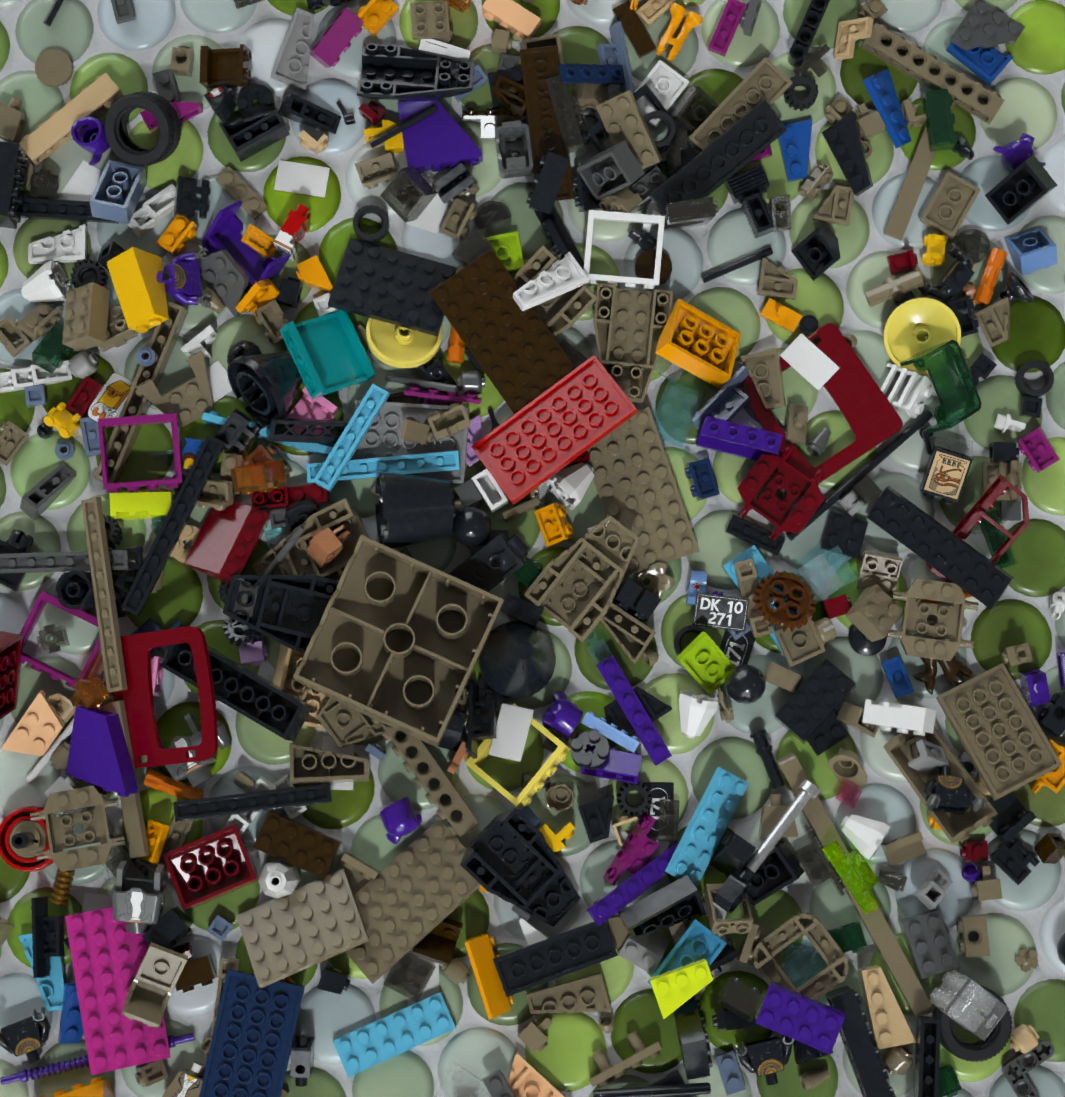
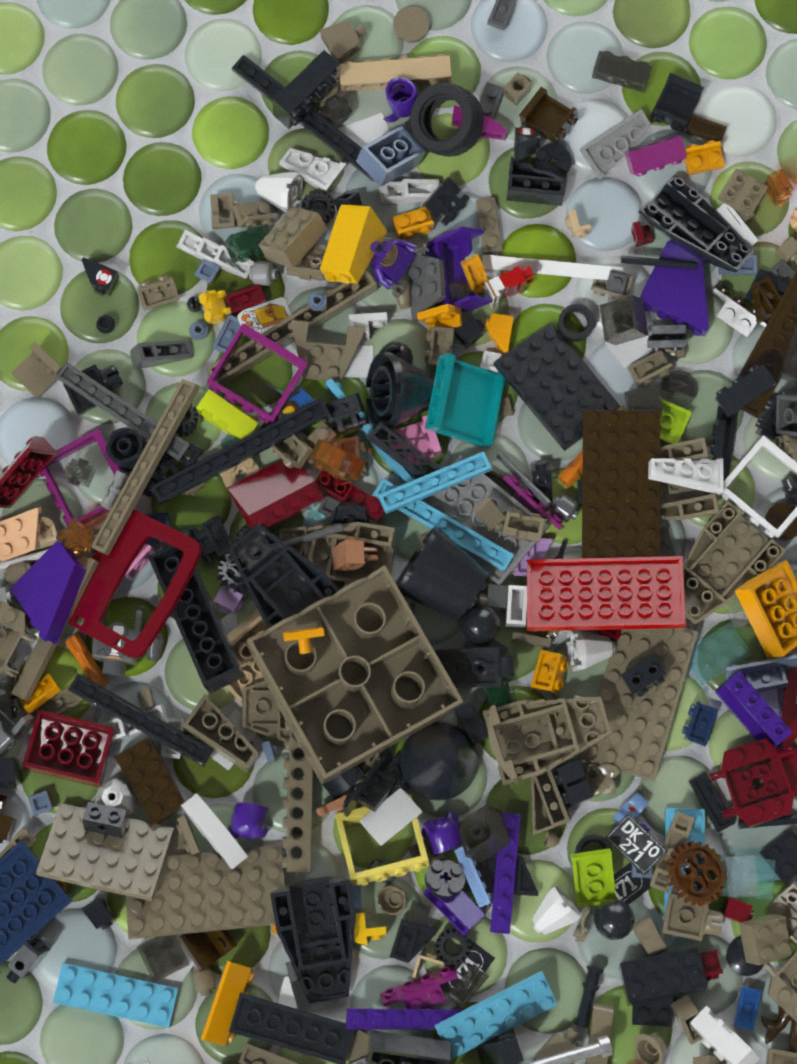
camera: 40 degrees right, 5 degrees down
(92, 632) = (113, 490): none -> light grey pin
(206, 608) = (218, 537): none -> black plate
(257, 265) = (459, 291): none -> clear smoke tile
(283, 903) = (105, 820): none -> black brick
(301, 178) = (544, 244): white sticker -> none
(309, 114) = (589, 200): black slope -> none
(319, 191) = (549, 267): none -> white sticker
(337, 640) = (303, 637): none -> light orange tile
(348, 118) = (619, 226): black hand -> none
(378, 847) = (214, 831): none -> white slope
(380, 166) = (616, 282): none -> black plate
(394, 144) = (640, 272): yellow brick -> none
(400, 345) = (528, 436): light yellow dish -> none
(513, 138) = (743, 335): dark grey piece -> none
(540, 599) = (494, 723): none -> dark tan slope
(594, 692) = (483, 833): none -> clear smoke brick
(598, 649) = (512, 802): clear light blue plate -> none
(632, 473) = (644, 676): none -> black brick
(845, 663) = (711, 964): none -> dark red bracket

